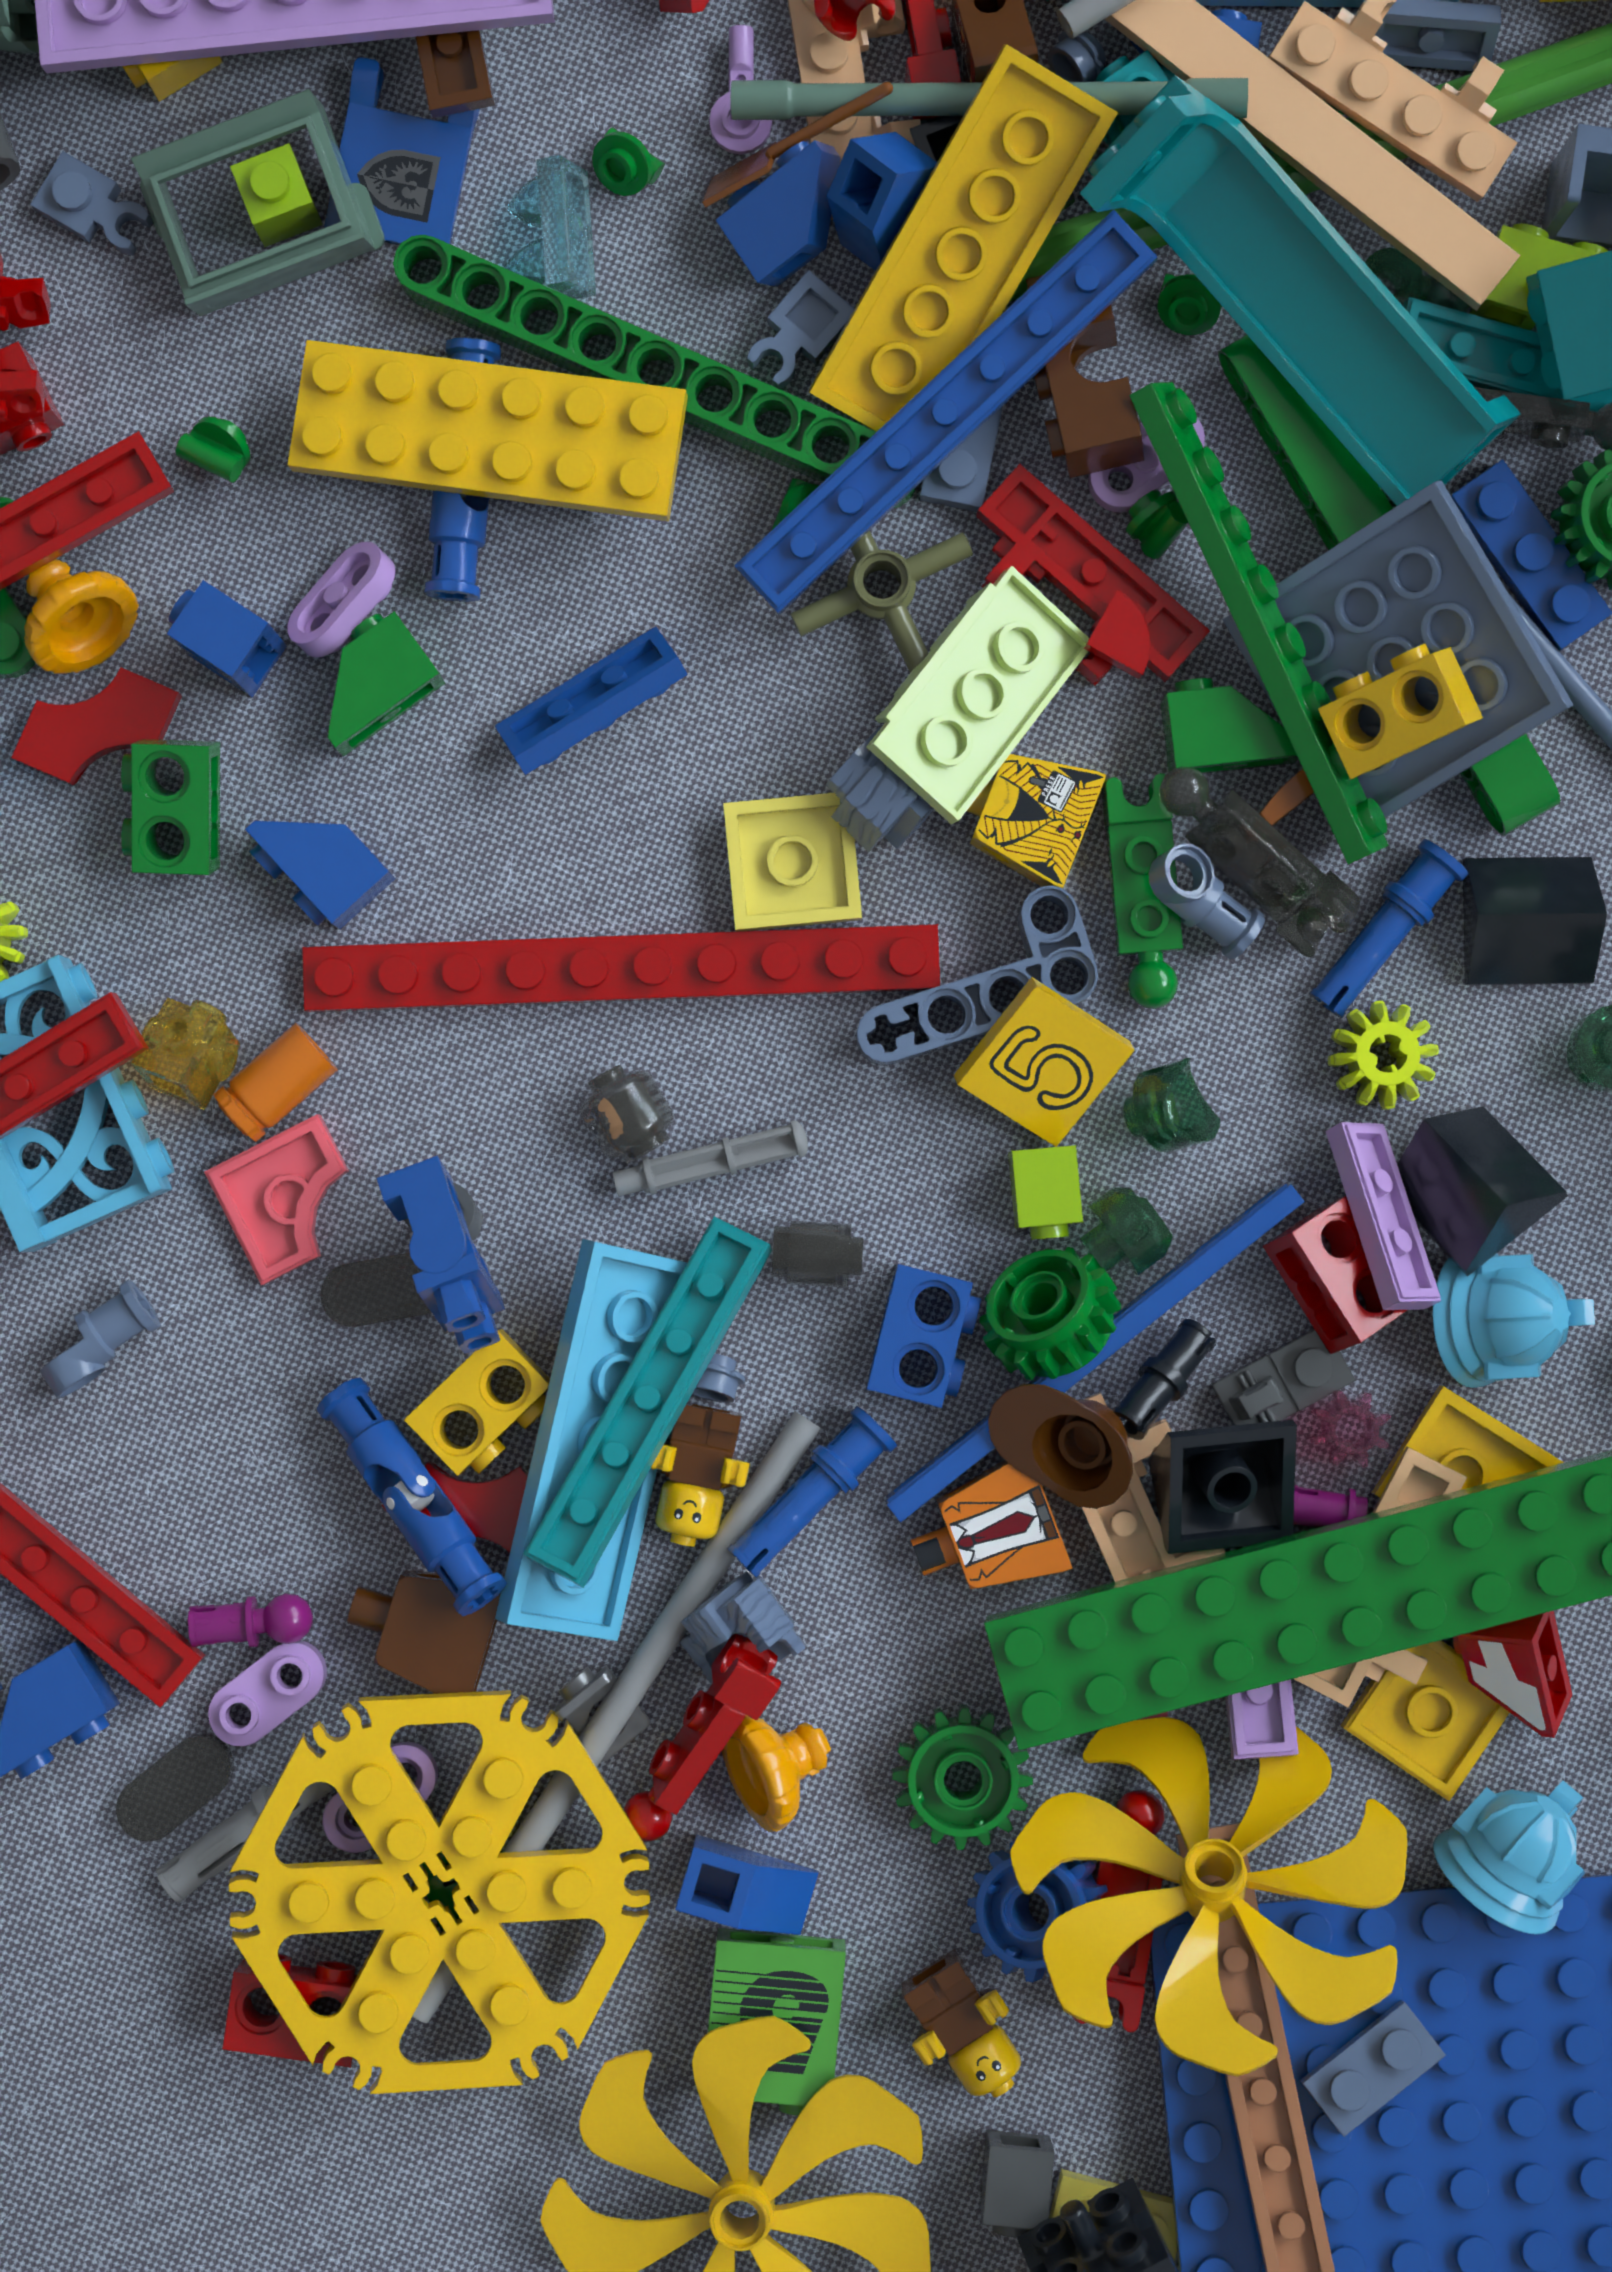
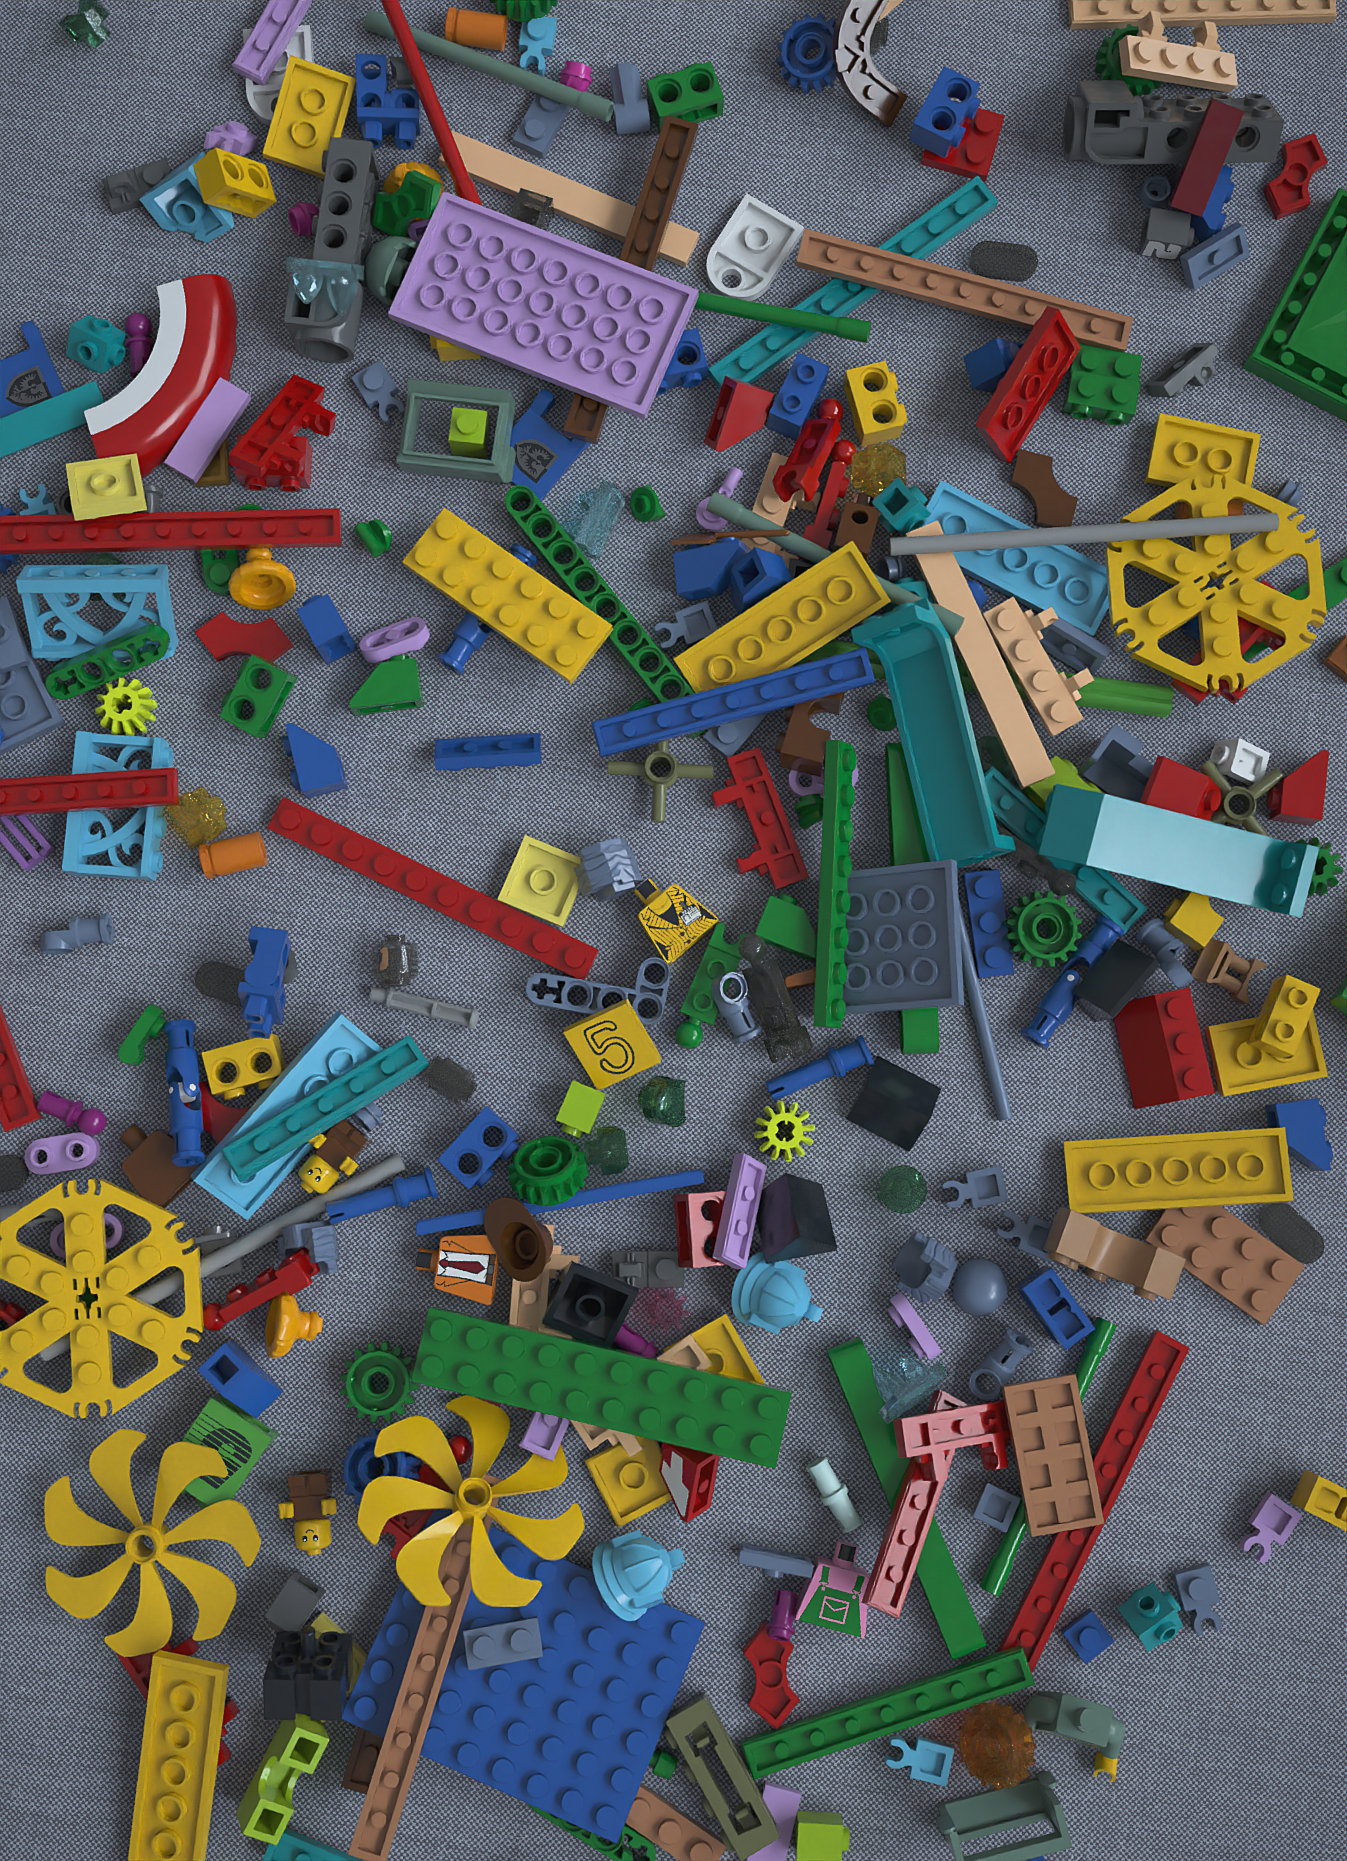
camera: 25 degrees right, 5 degrees down
(275, 1195) = (203, 910): coral tile -> none
(293, 1420) = (148, 1025): none -> green plate
(977, 693) = (676, 846): yellowish green piece -> none
(1122, 636) = (762, 856): red tile -> none
(1164, 1377) = (587, 1234): black pin -> none
(1403, 720) = (876, 967): yellow brick -> none

